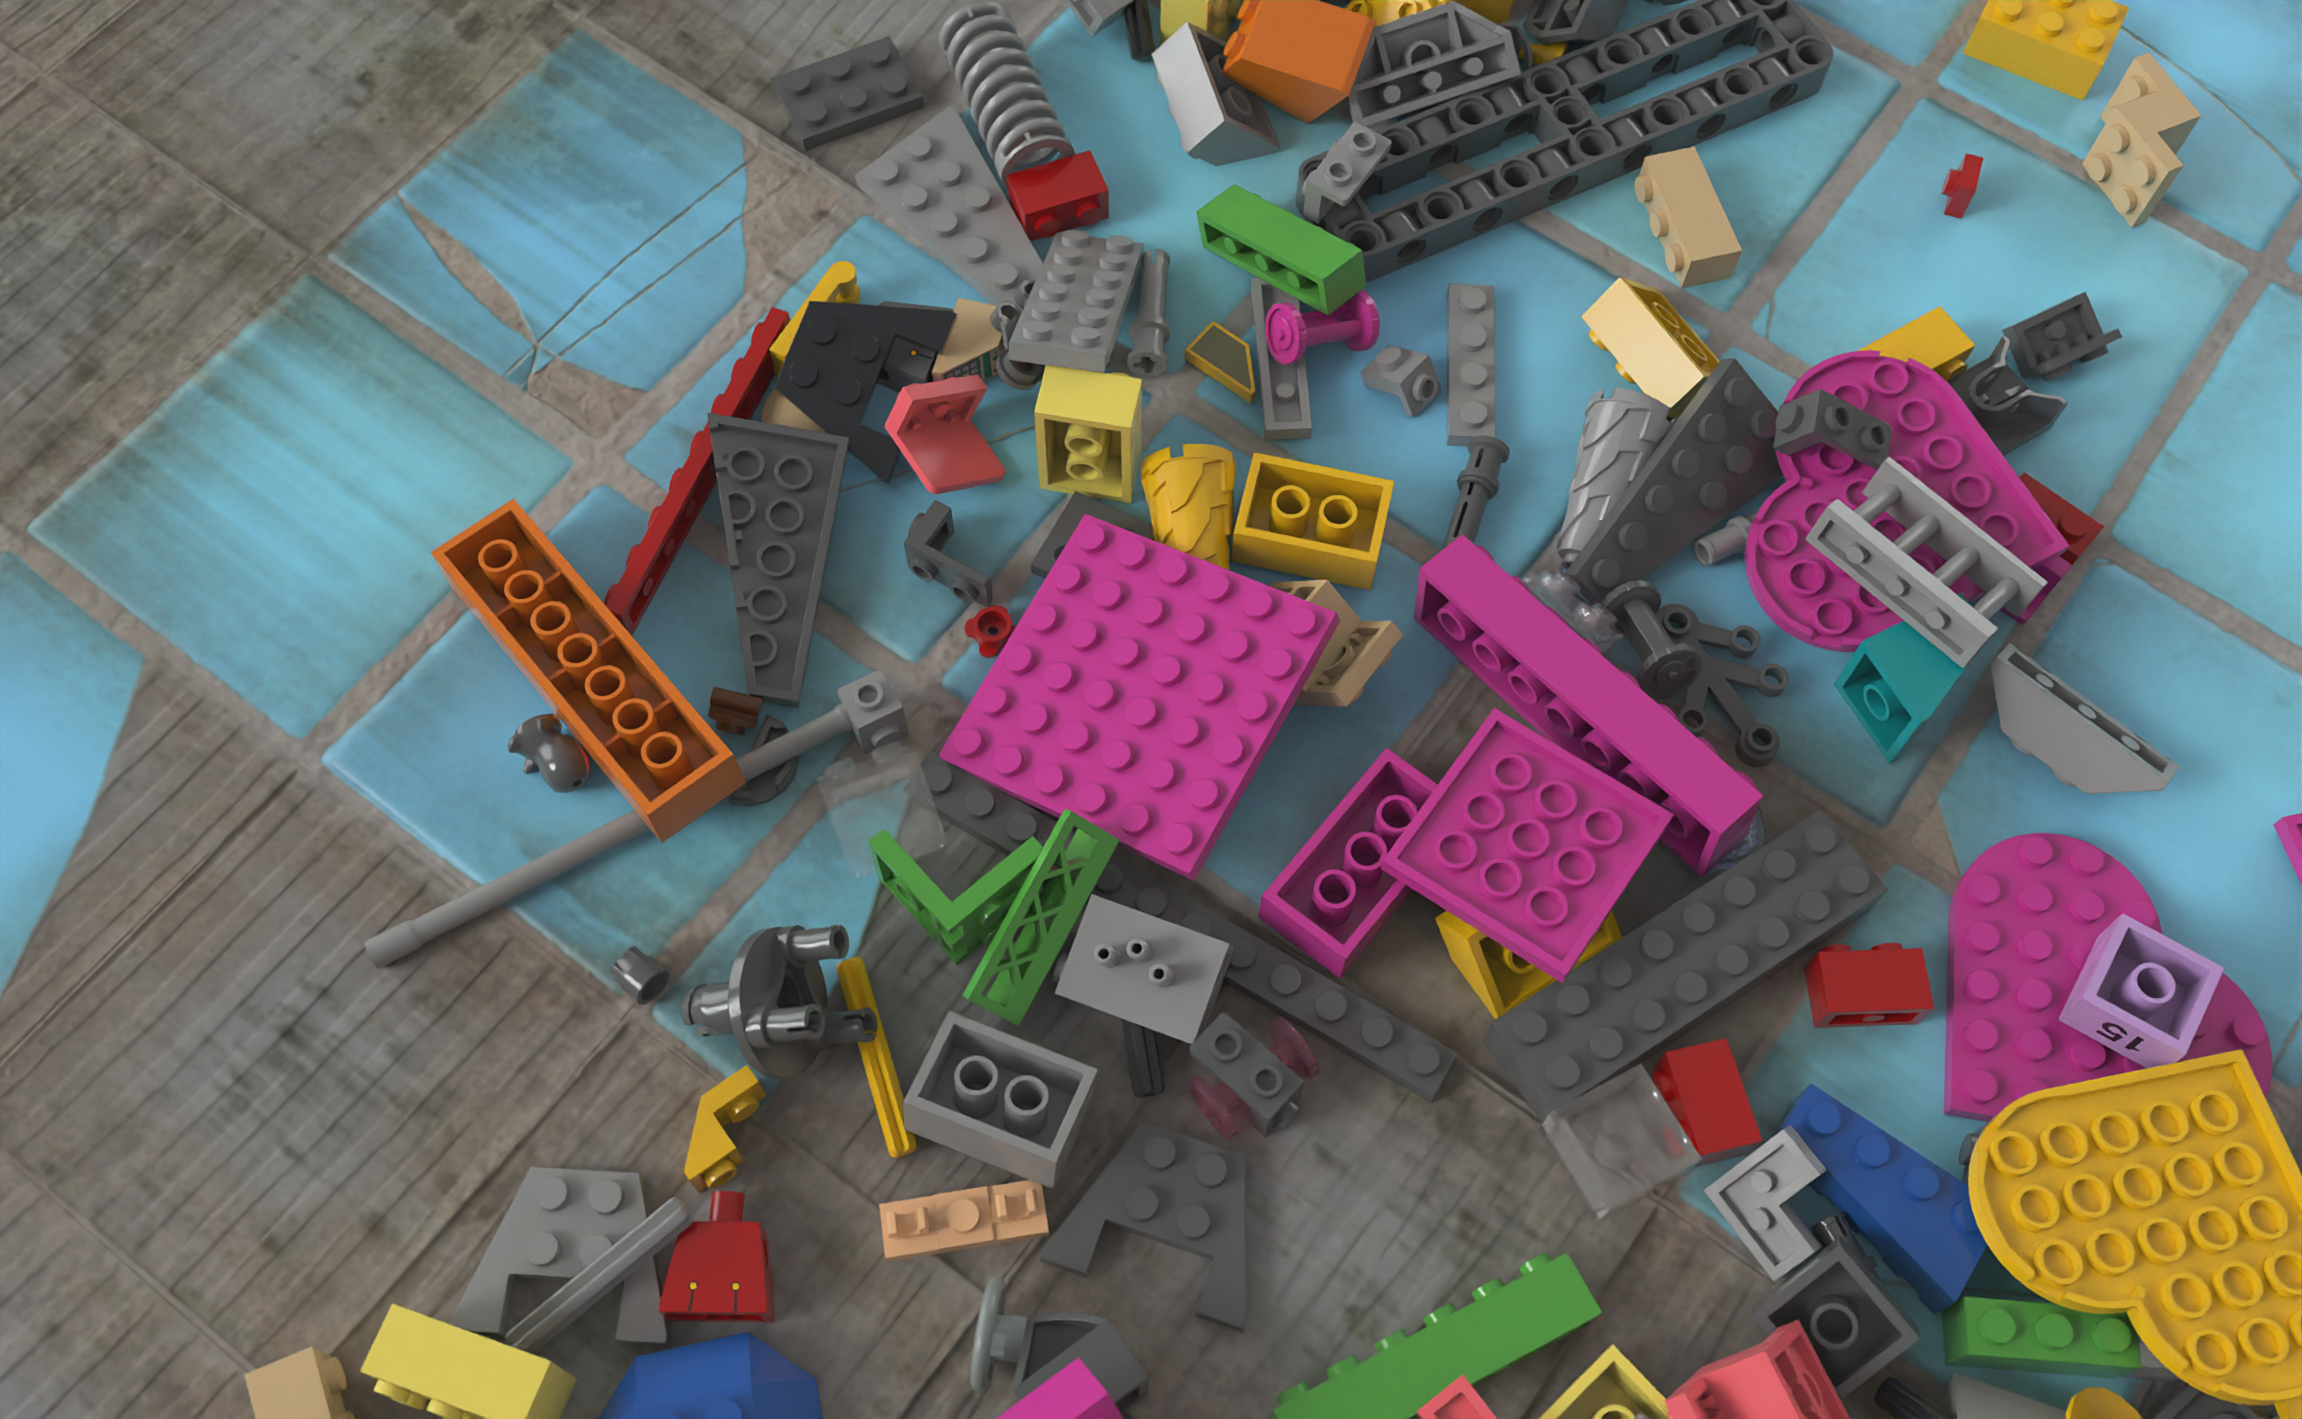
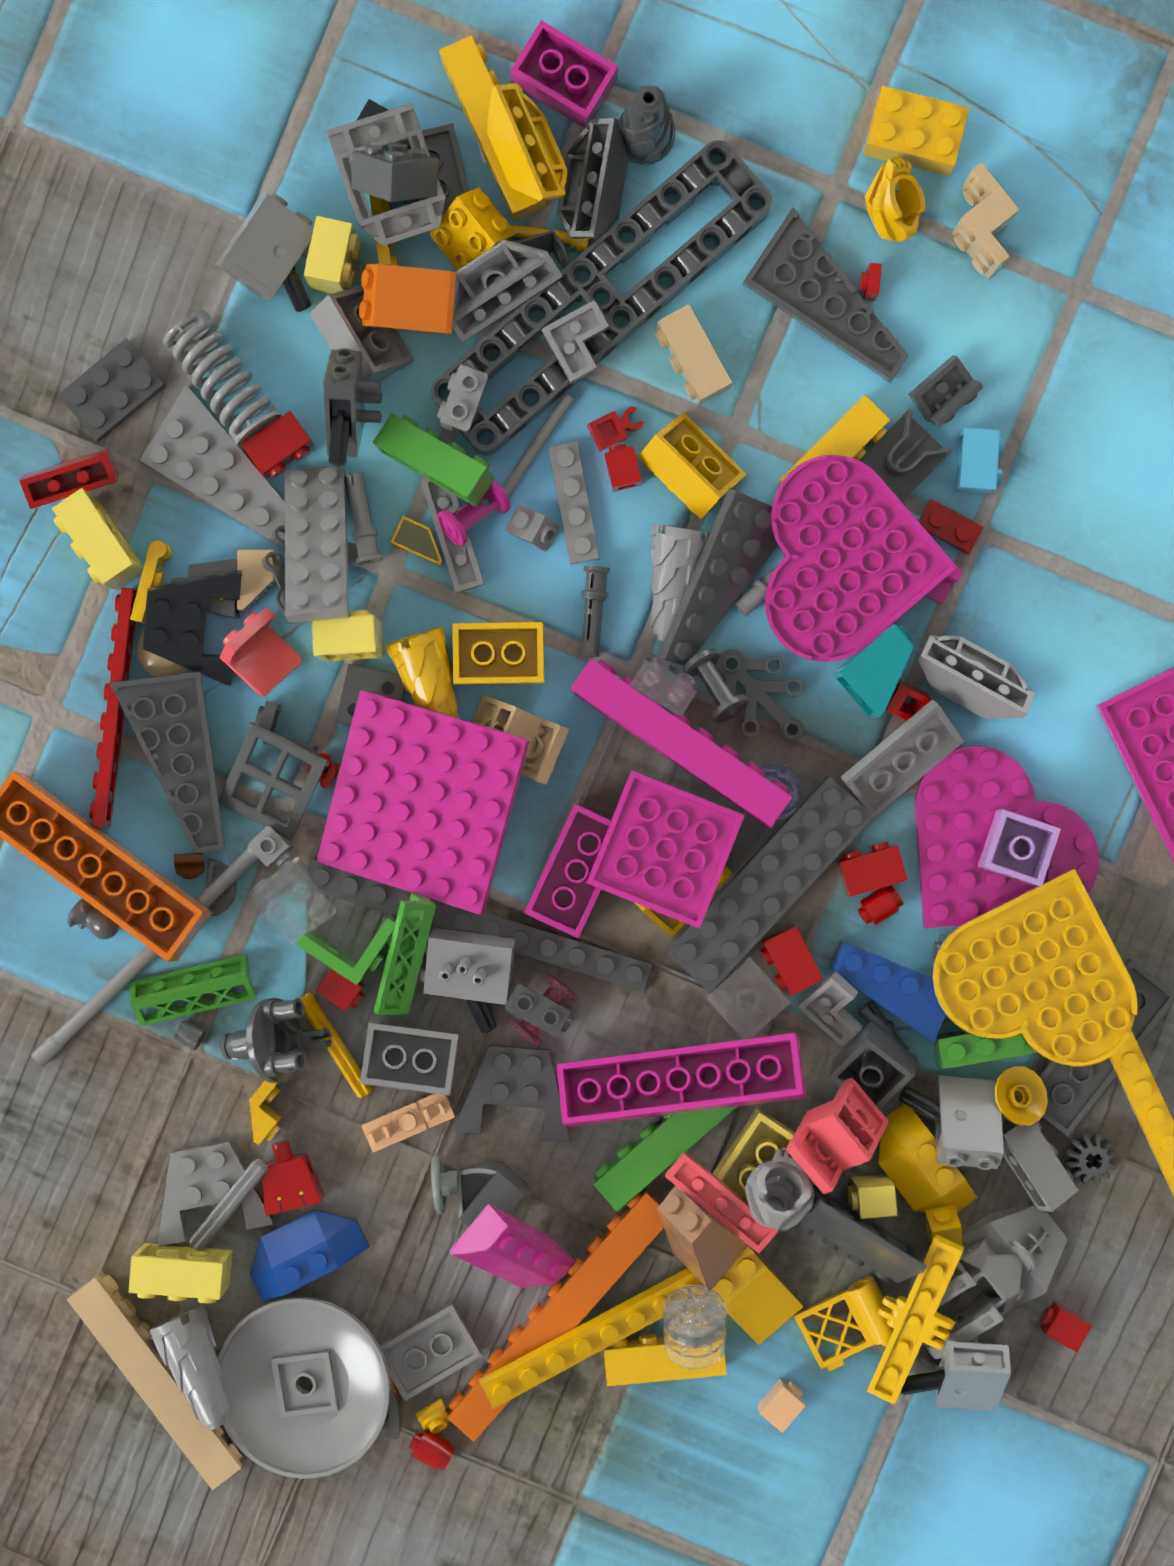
camera: 15 degrees left, 25 degrees up
(664, 890) = (189, 986): none -> bright green fence
(748, 166) = (68, 477): none -> red brick
(760, 238) = (97, 540): none -> light yellow brick
(908, 617) = (272, 780): none -> dark grey window
(917, 955) = (341, 990): none -> red brick
(1176, 139) = (344, 404): none -> dark grey piece
(1437, 277) = (537, 444): none -> light grey bar
(1484, 1245) = (681, 1080): none -> dark pink brick
(1517, 140) = (568, 337): none -> light grey plate
(1548, 283) = (611, 430): none -> red plate
(1555, 331) = (622, 467): none -> red brick
(1836, 423) = (805, 526): dark grey bracket -> none
(1875, 1050) = (880, 905): none -> red brick
(1887, 191) = (816, 292): none -> dark grey wing
(1904, 584) = (843, 623): light grey fence -> none
(1946, 816) = (902, 758): none -> light grey plate
(1977, 737) = (906, 711): none -> red brick
(2008, 94) = (893, 212): none -> yellow helmet
(2103, 436) = (978, 460): none -> medium azure brick

